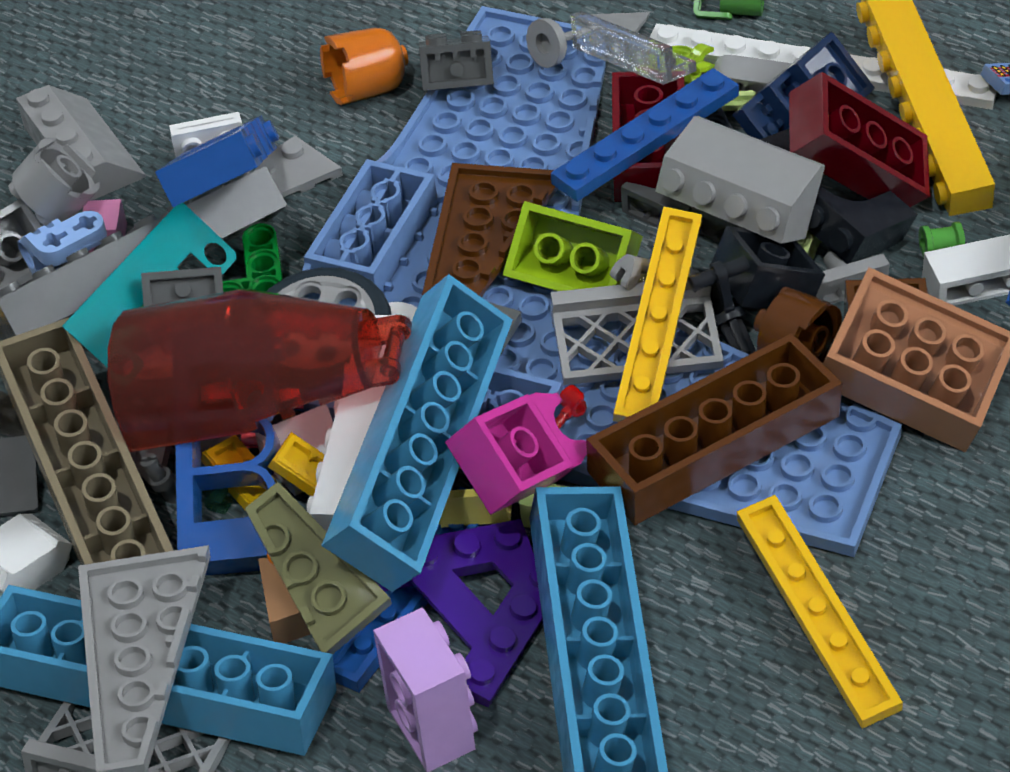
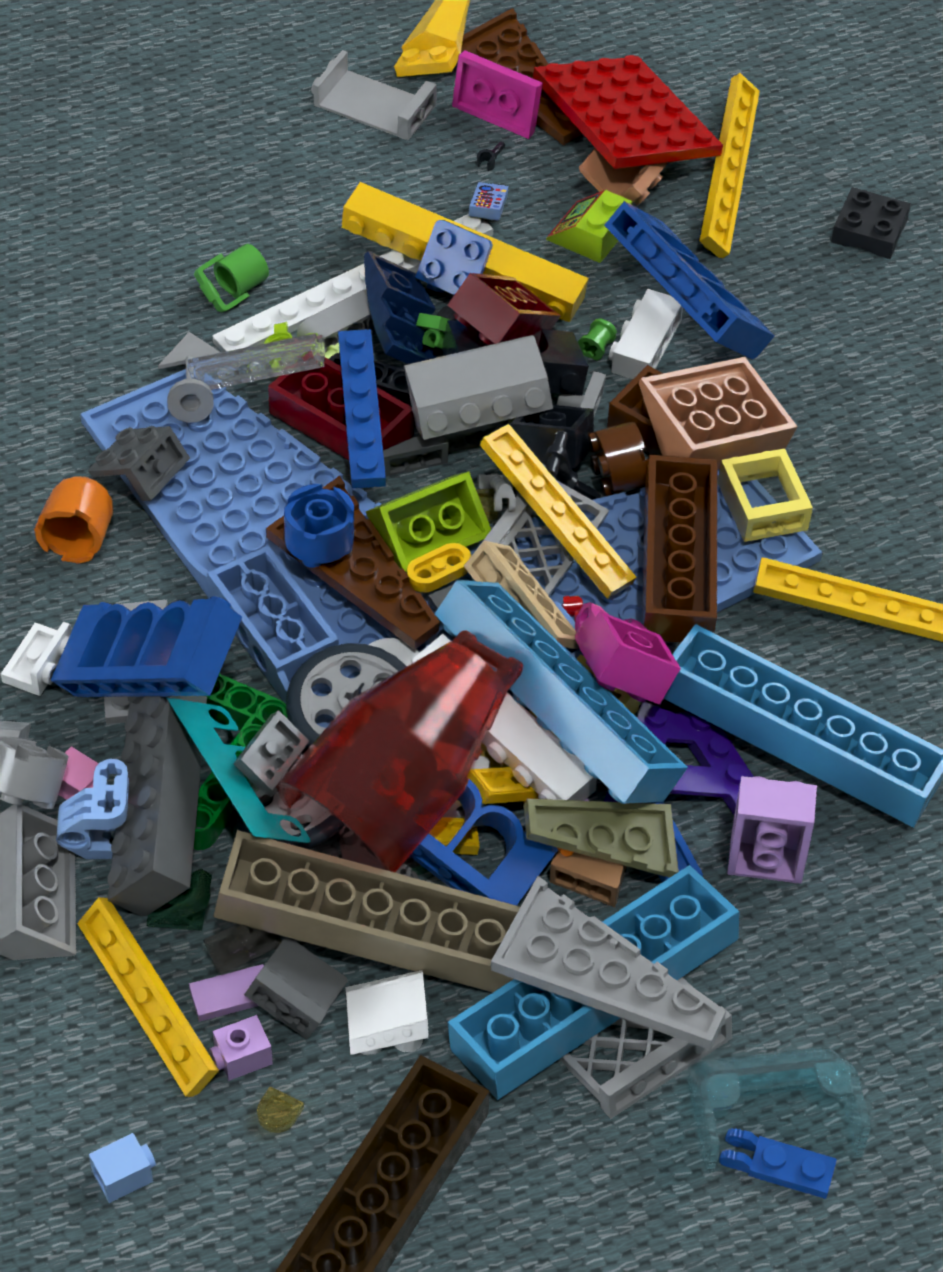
camera: 60 degrees left, 5 degrees up
(468, 179) = (319, 524): none -> blue brick
(522, 288) = (435, 567): none -> yellow plate
(525, 338) = (502, 565): none -> tan fence
(860, 489) = (757, 522): none -> light yellow window
(898, 81) = (452, 256): none -> bracket

